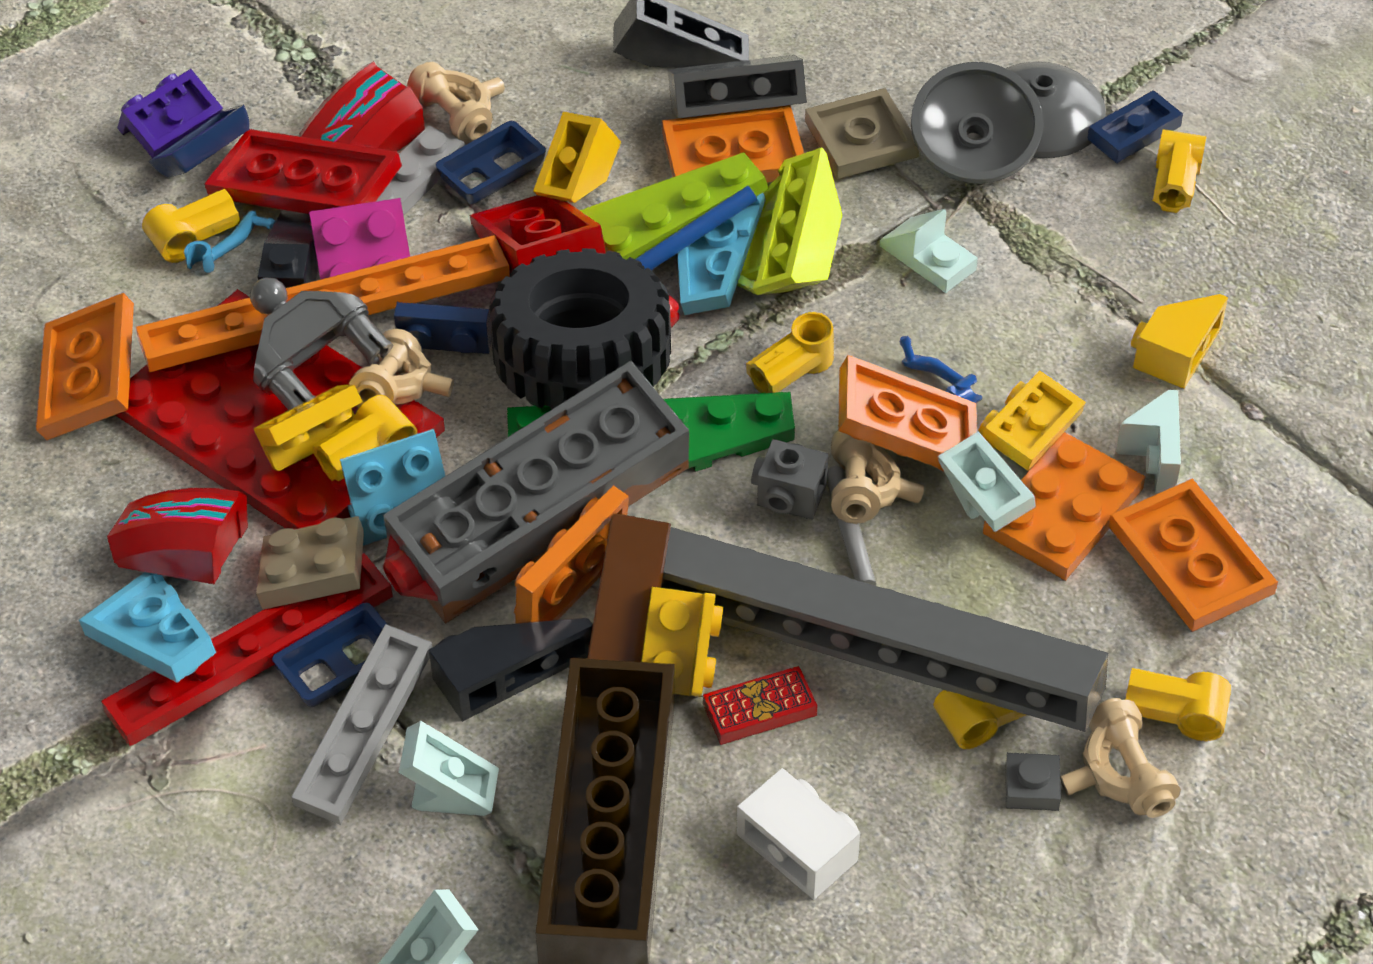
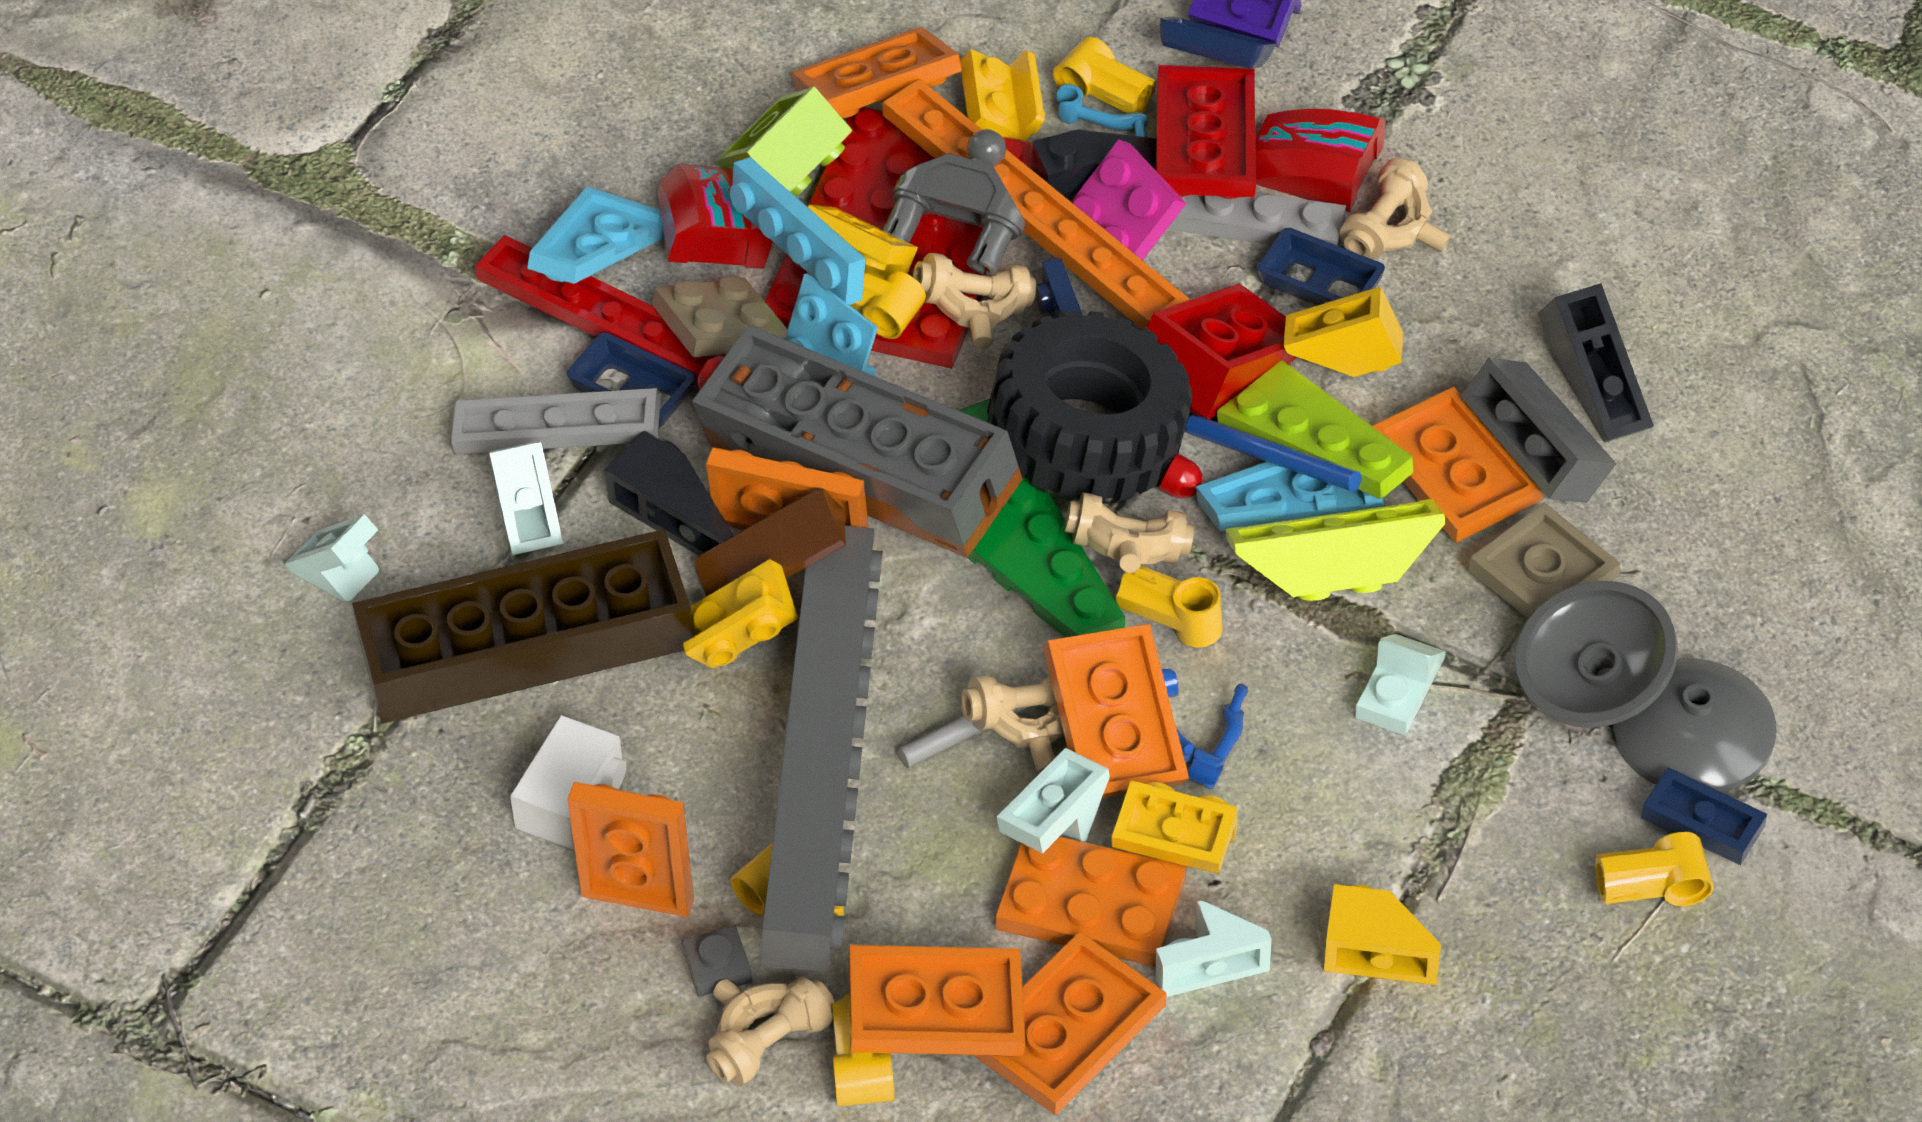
camera: 70 degrees right, 0 degrees up
(128, 452) = (791, 139): none -> slope
(172, 286) = (1003, 95): none -> yellow bracket
(285, 450) = (797, 231): none -> medium azure plate
(722, 357) = (1125, 538): none -> tan piece
(759, 705) = (716, 715): red tile -> none
(791, 479) = (994, 642): dark grey brick -> none
(936, 780) = (631, 848): none -> orange plate
(1168, 619) = (935, 1000): none -> orange plate

